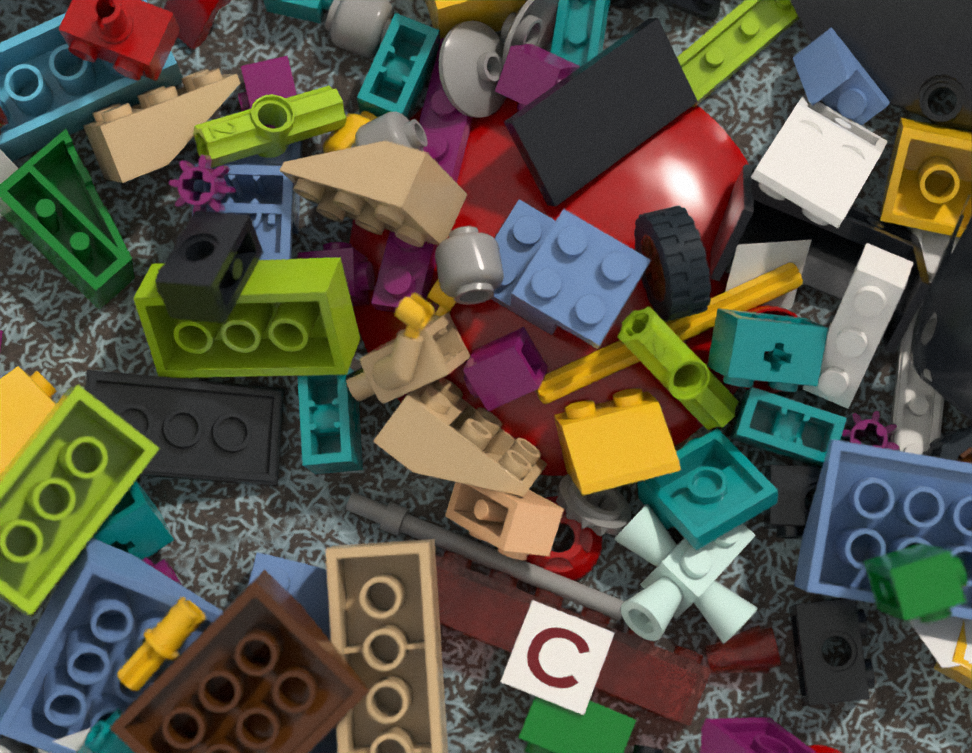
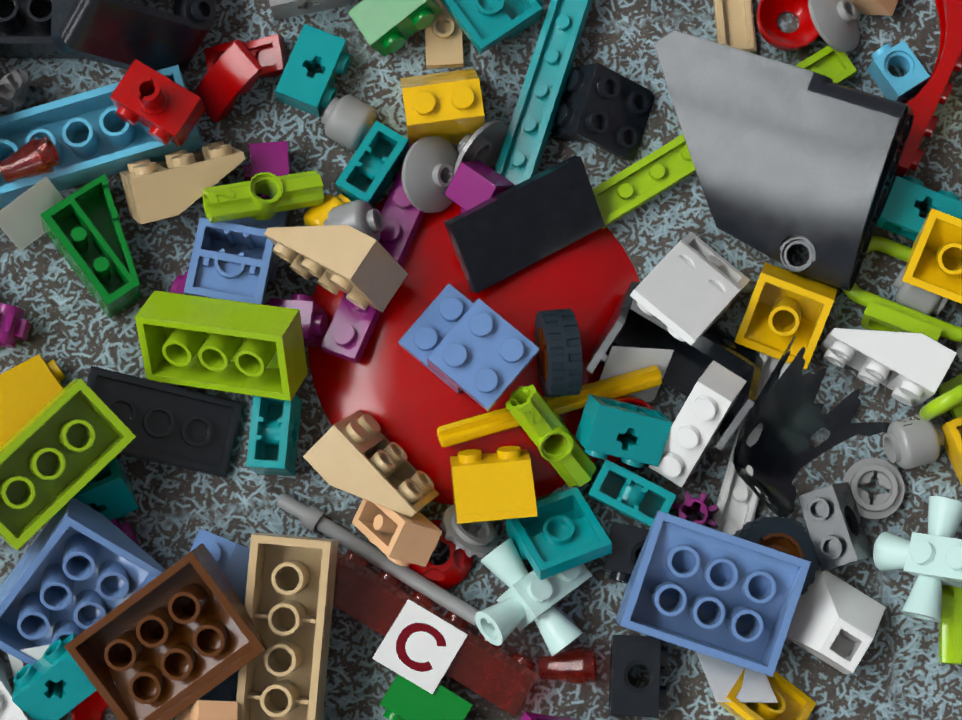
camera: 10 degrees right, 0 degrees up
(161, 643) = (114, 587): yellow axle -> none
(202, 172) = (194, 245): magenta gear -> none
(209, 266) = (196, 302): black brick -> none
(418, 354) = (350, 394): tan torso -> none
(469, 265) = (399, 330): light grey head -> none
(504, 369) = (415, 415): magenta brick -> none
(838, 79) = (716, 221): medium blue slope -> none
(917, 582) = (702, 632): green brick -> none

